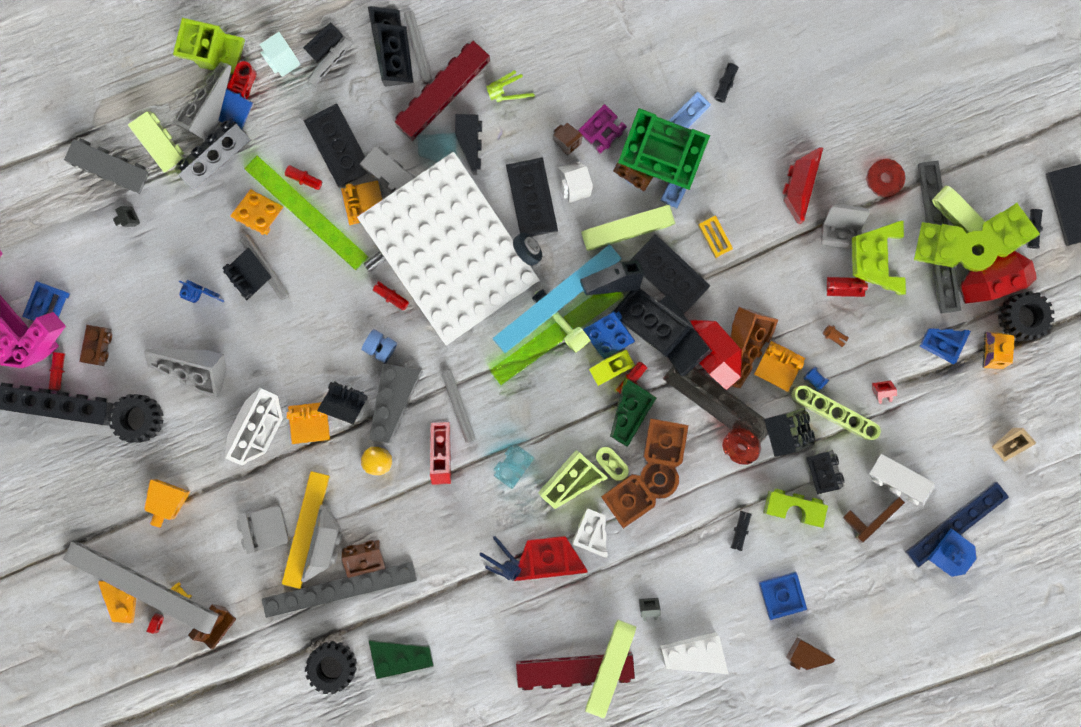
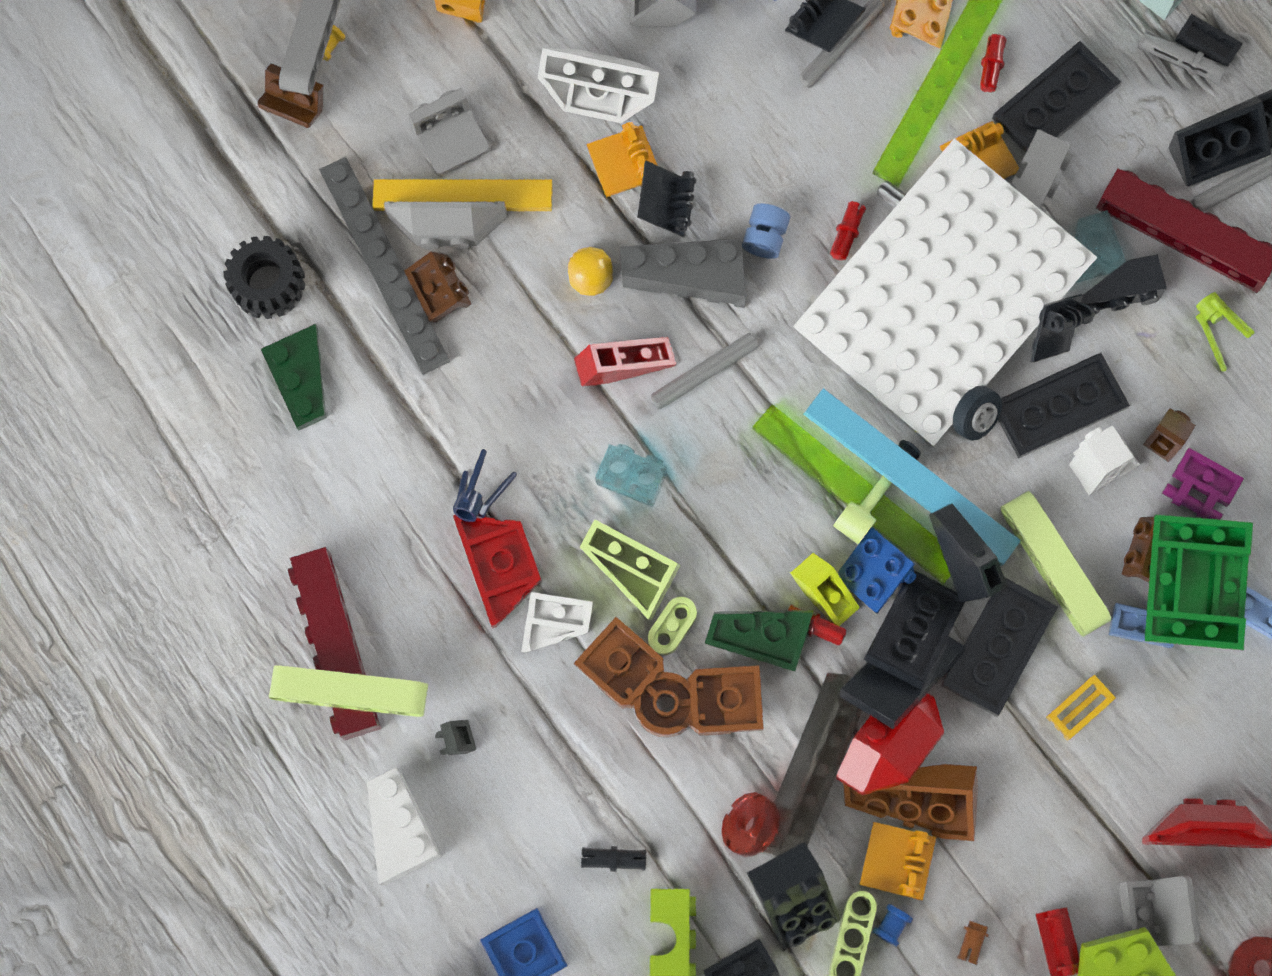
camera: 80 degrees right, 10 degrees down
(155, 623) = (277, 19): red tile -> none
(486, 185) = (1058, 326): none -> black hinge

